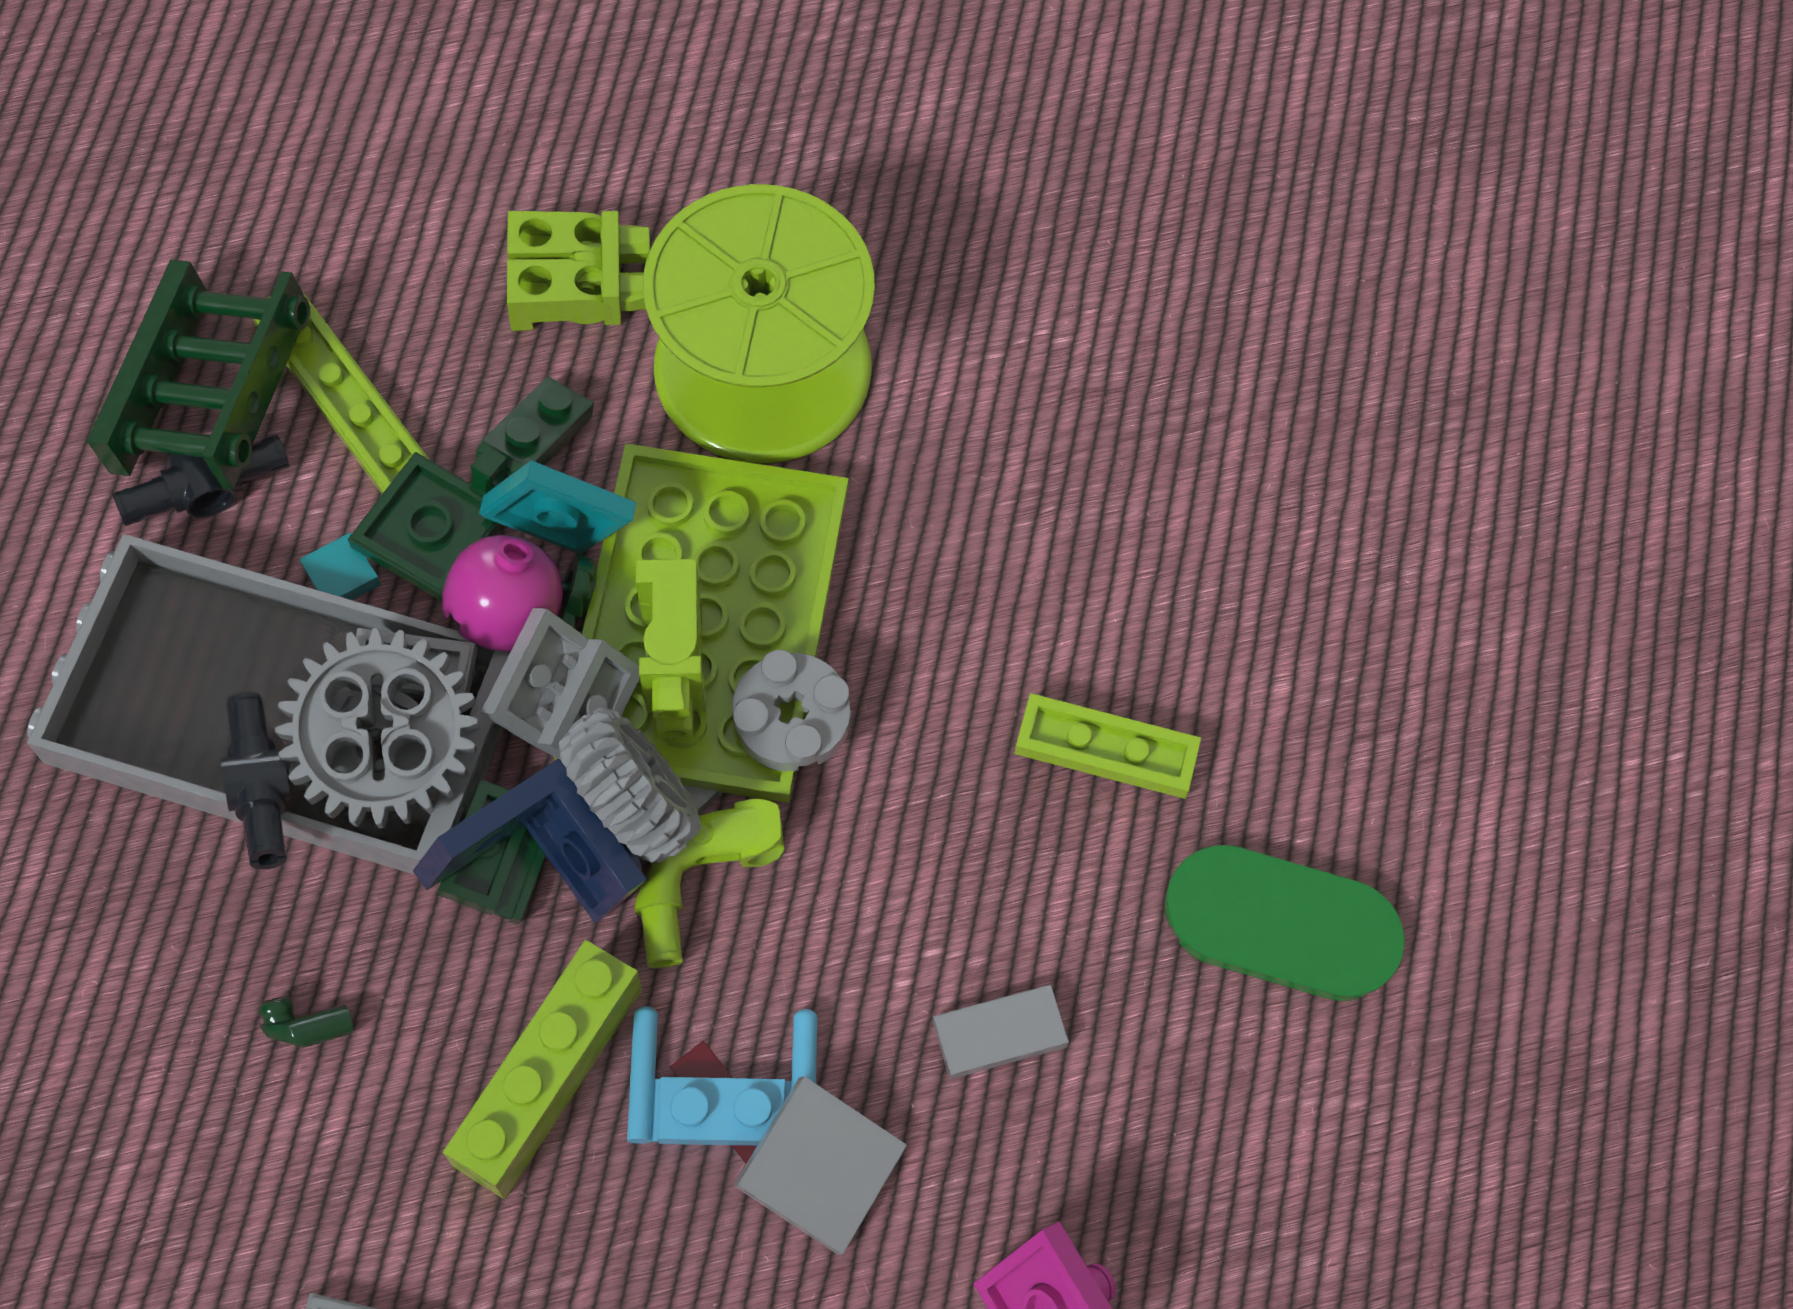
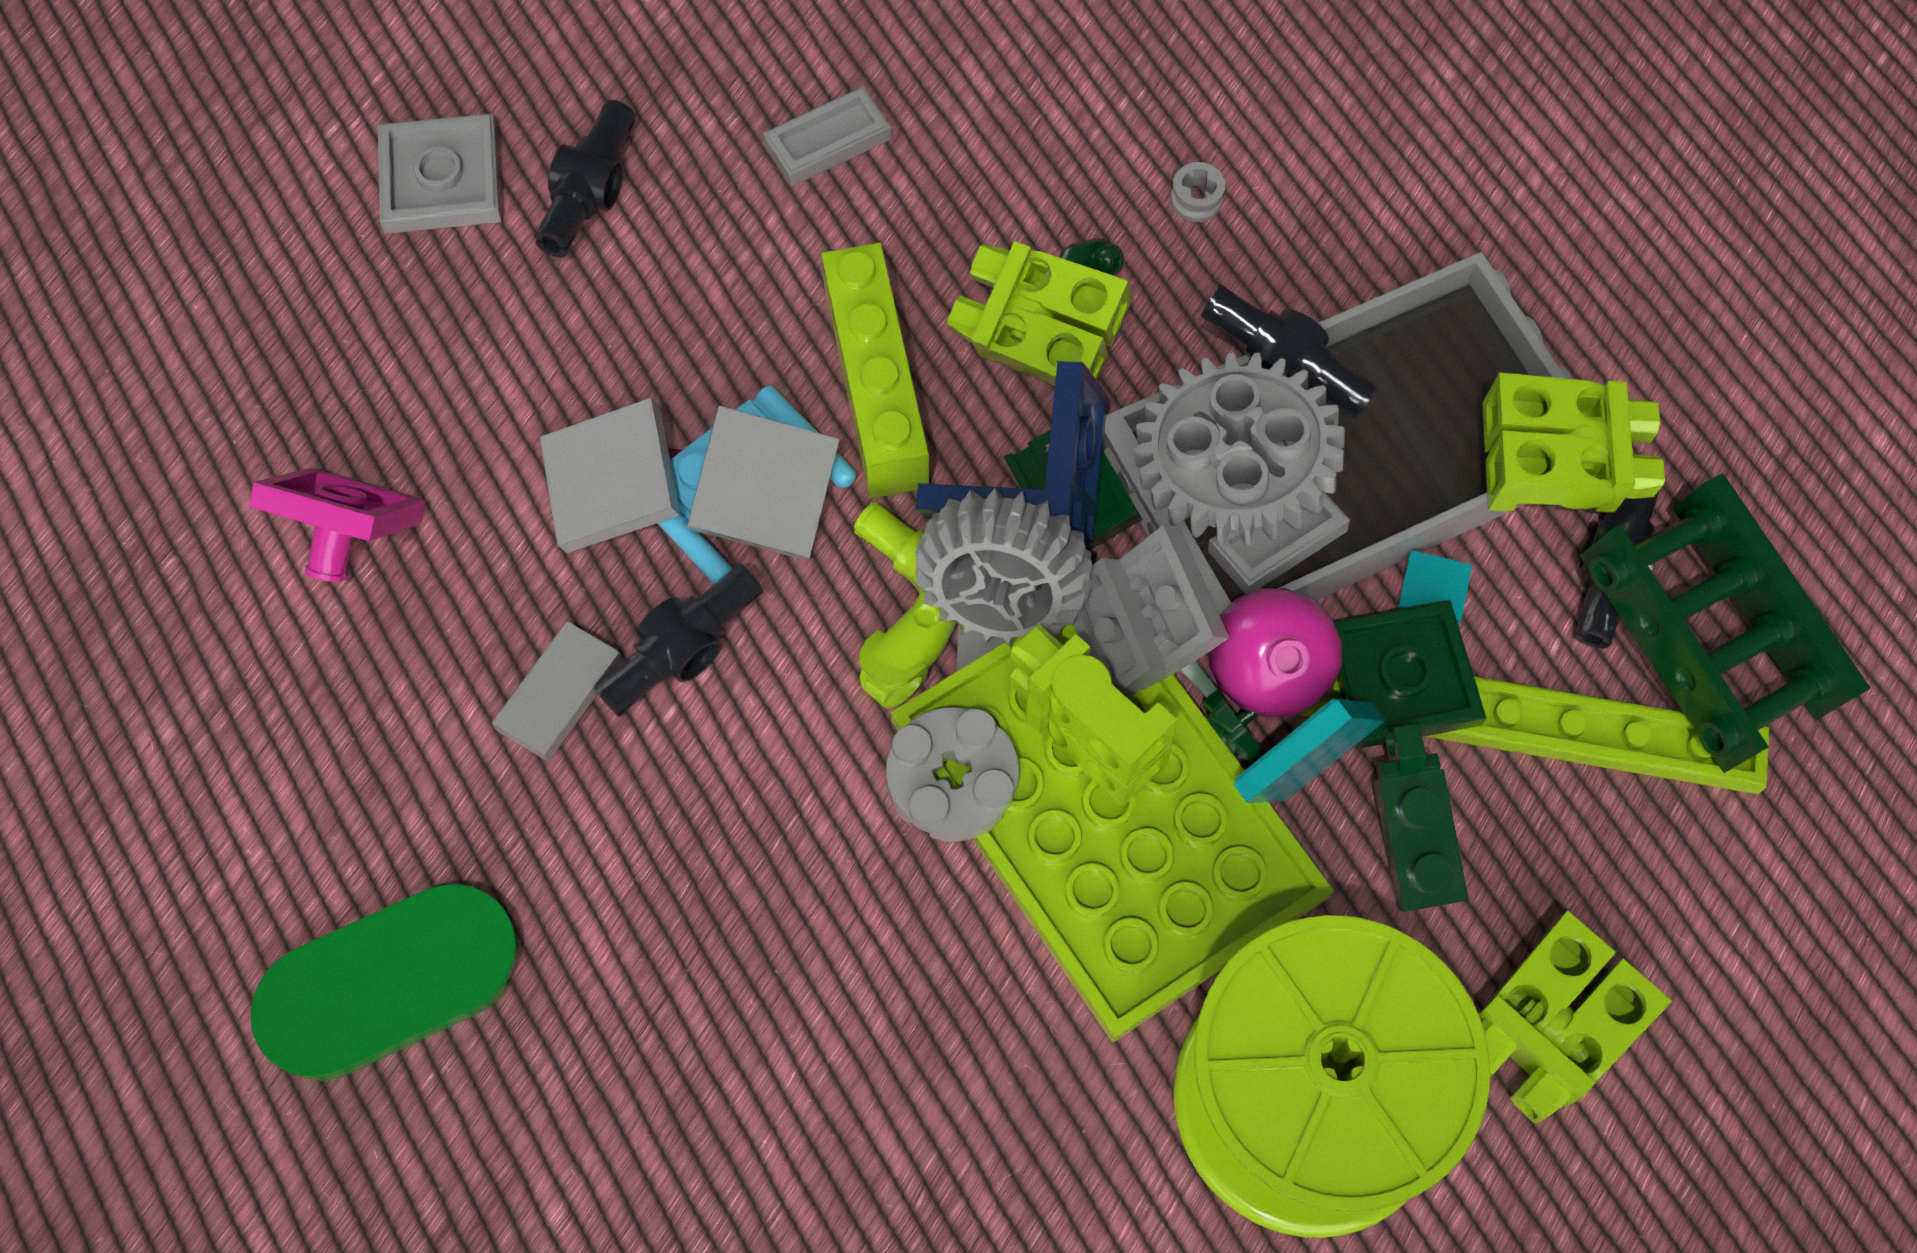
camera: 140 degrees right, 0 degrees up
(126, 1009) = (1197, 175): none -> light grey bush
(149, 522) = (1567, 443): none -> lime hips
(382, 992) = (1041, 311): none -> lime hips
(716, 1048) = (763, 483): none -> light grey tile
(883, 985) = (678, 639): none -> black pin
(1108, 746) = (664, 999): lime plate -> none

